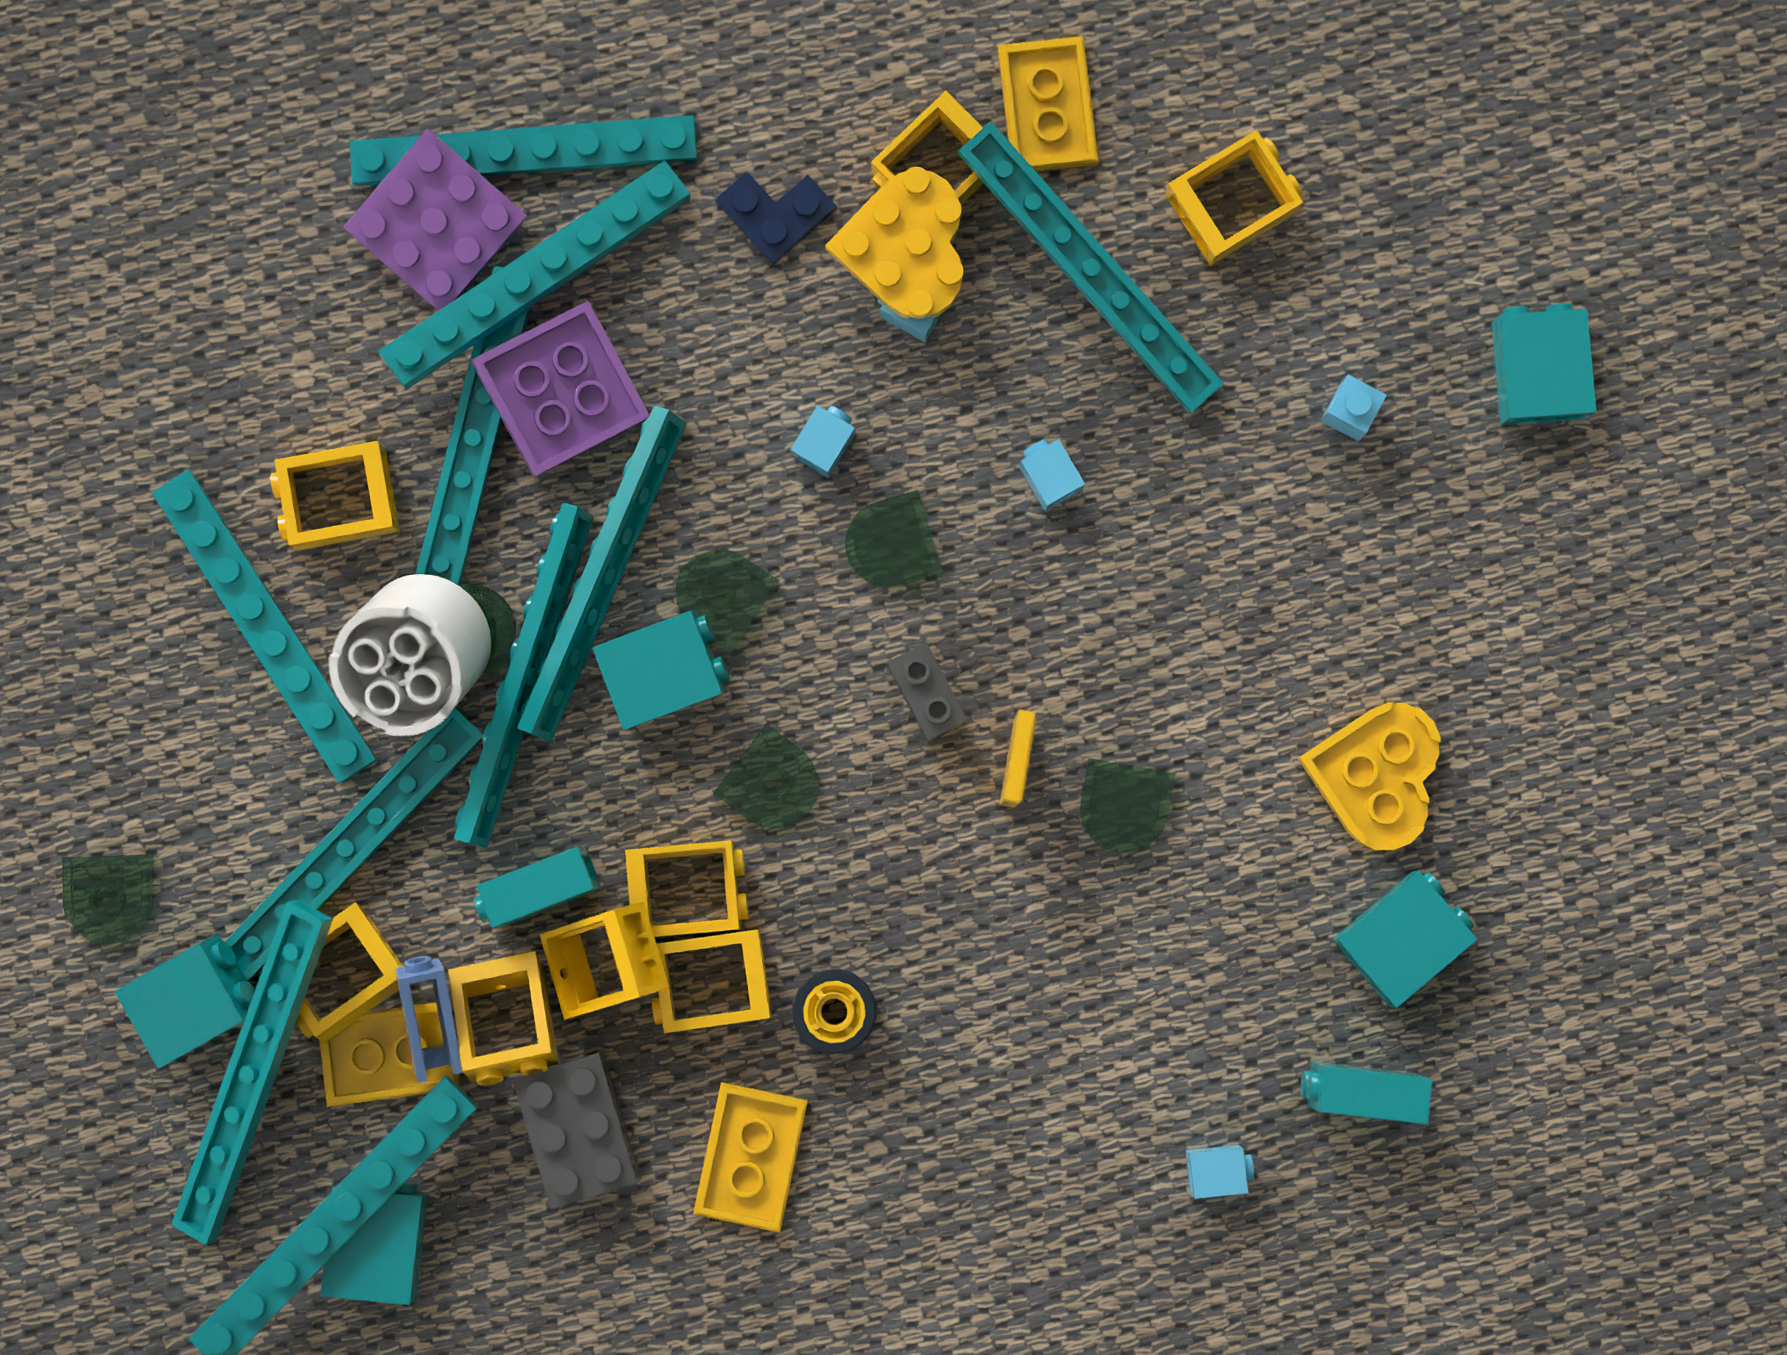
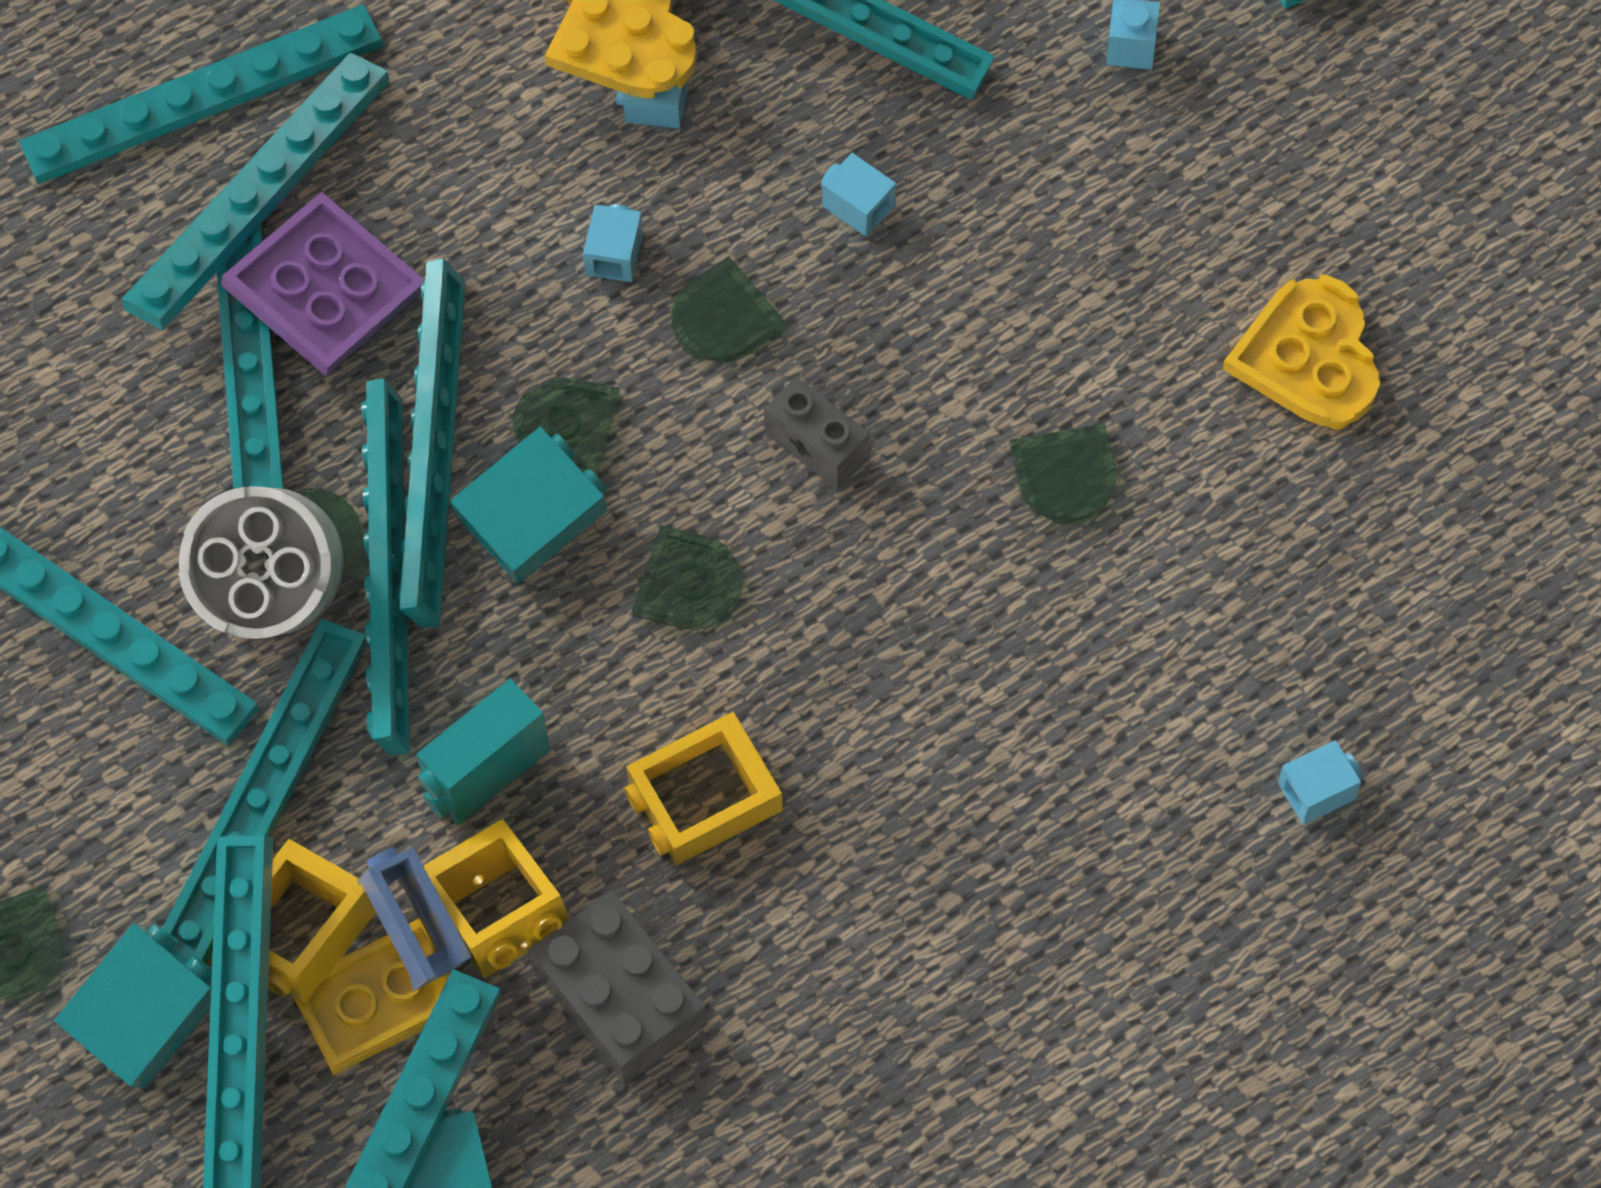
camera: 20 degrees left, 20 degrees down
(379, 487) = (138, 498): yellow window -> none
(435, 221) = (134, 178): medium lavender plate -> none
(633, 951) = (613, 766): yellow window -> none
(733, 866) = (621, 673): yellow window -> none
(750, 1157) = (817, 956): yellow tile -> none
(775, 225) = (483, 75): dark blue plate -> none
(827, 1036) = (845, 745): wheel -> none
(1018, 758) = (937, 444): yellow tile -> none
(1367, 1092) = (1438, 638): teal brick -> none
(1406, 937) = (1409, 491): teal brick -> none

